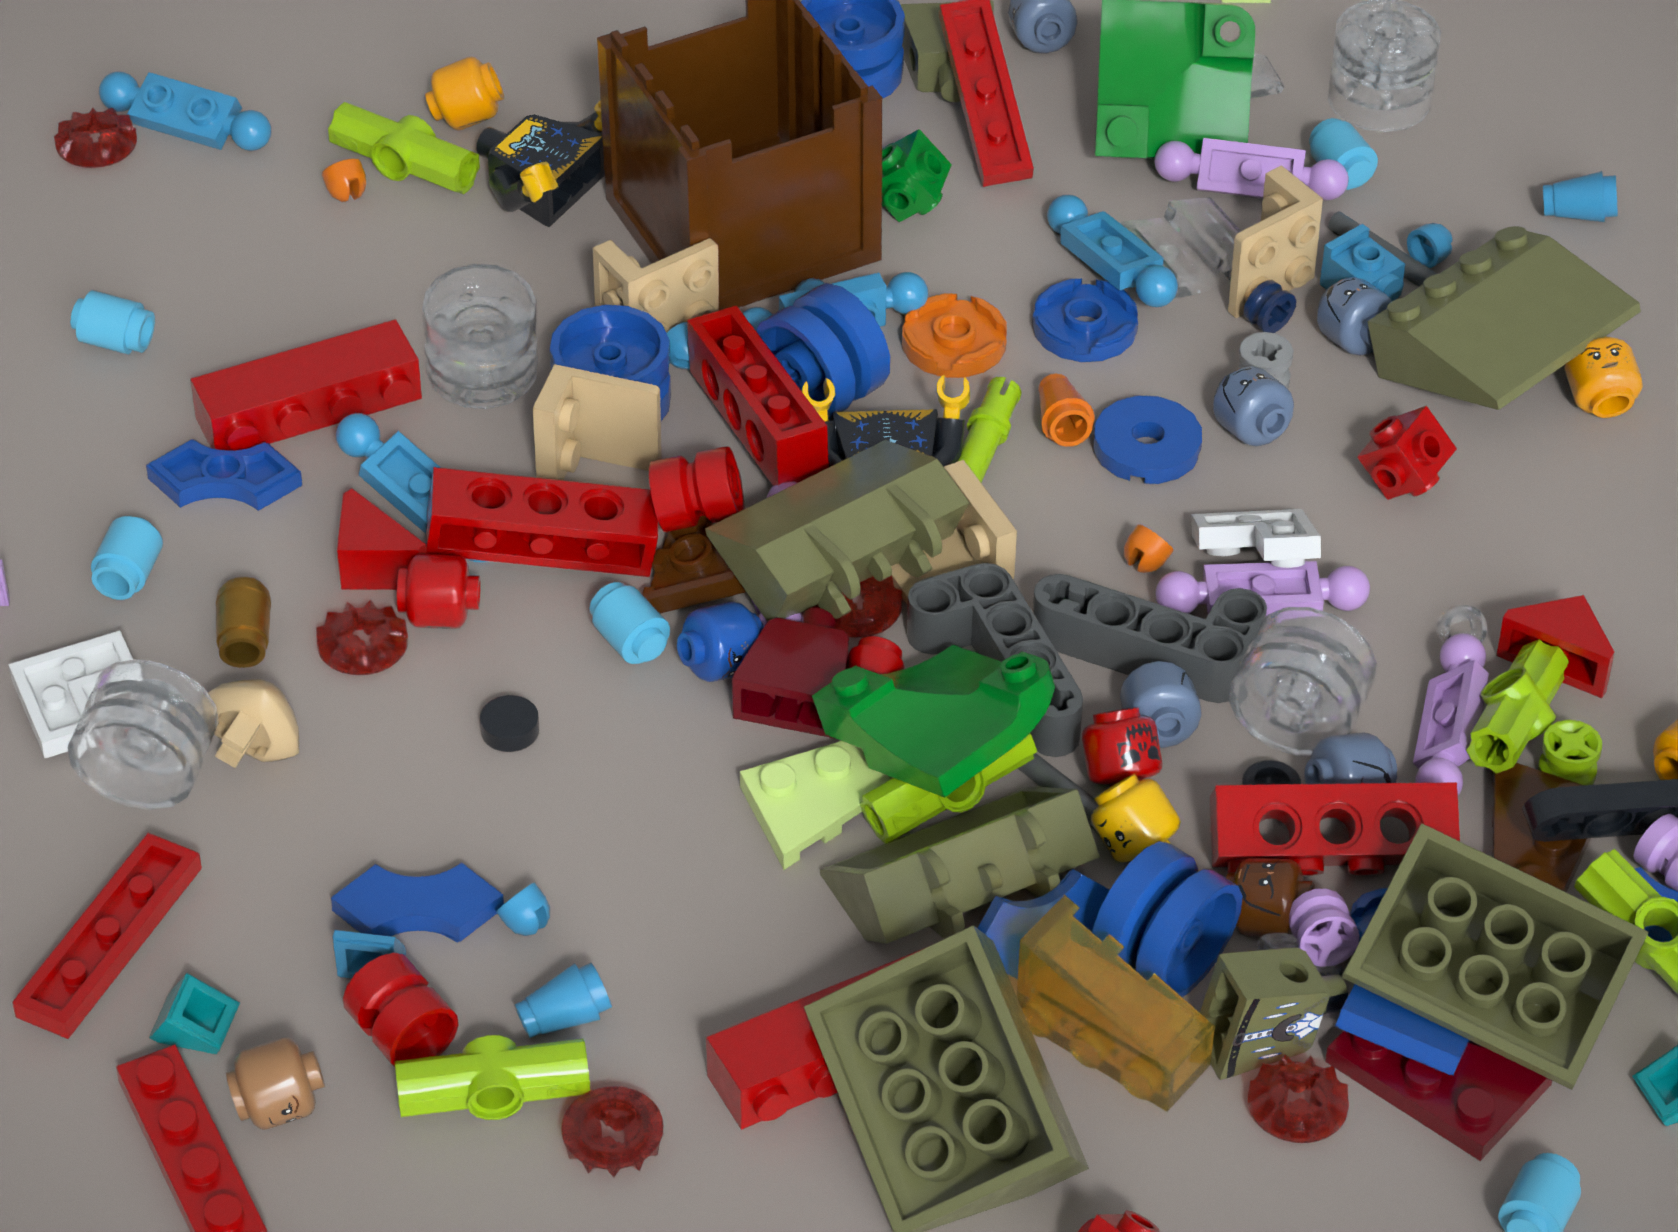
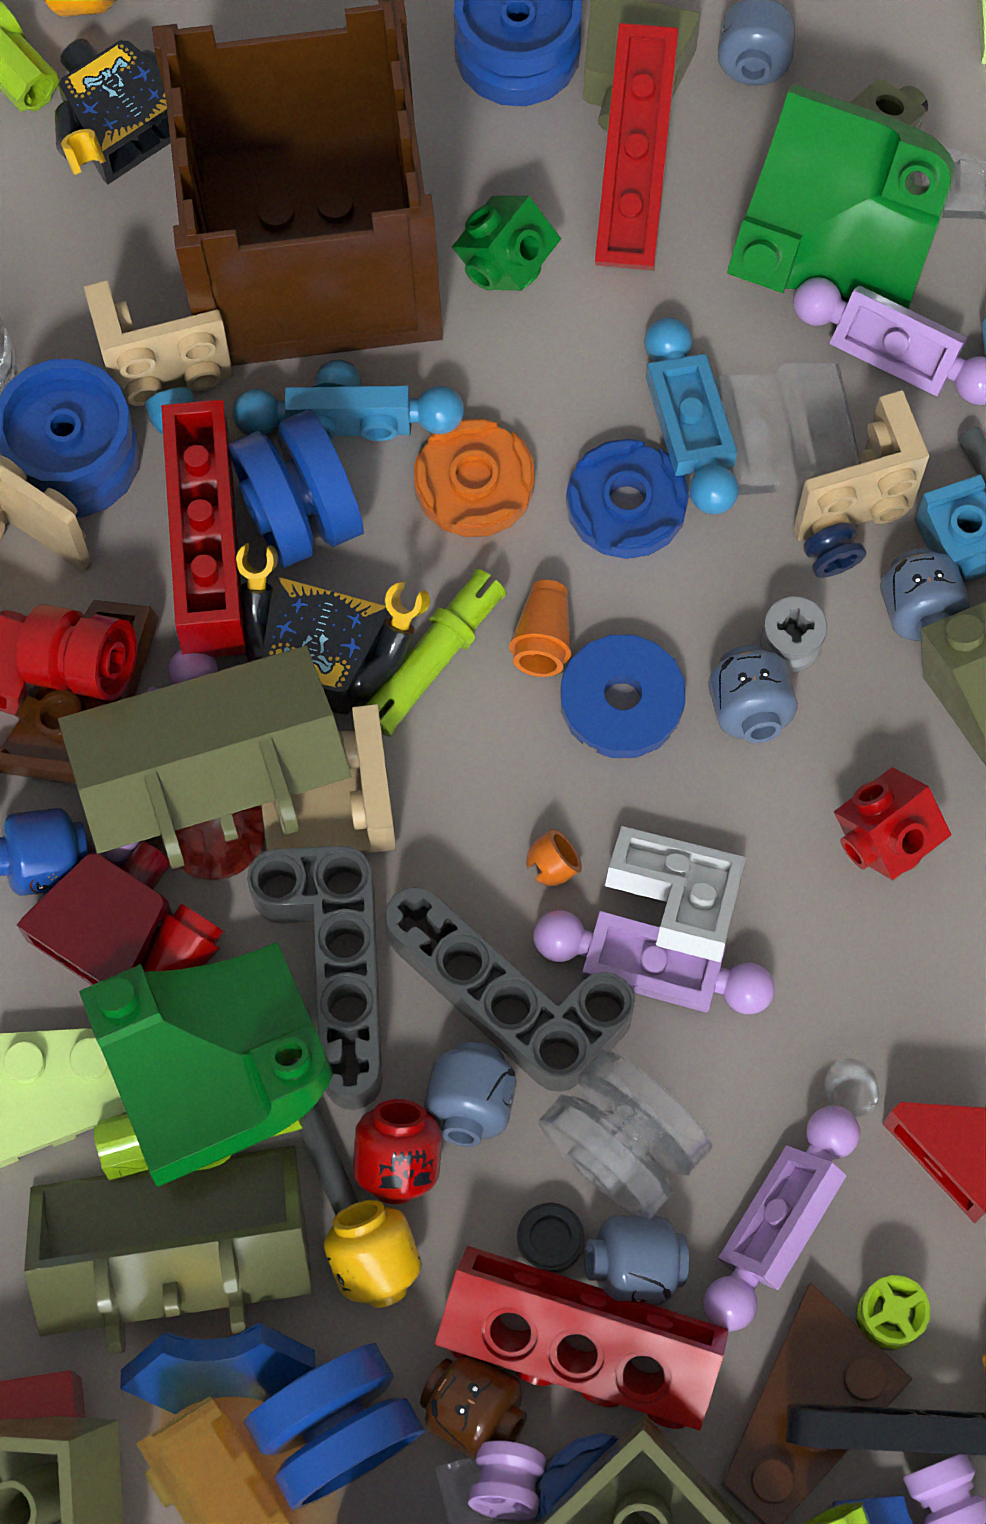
camera: 20 degrees right, 25 degrees up
(1517, 706) = (858, 1235): lime piece -> none

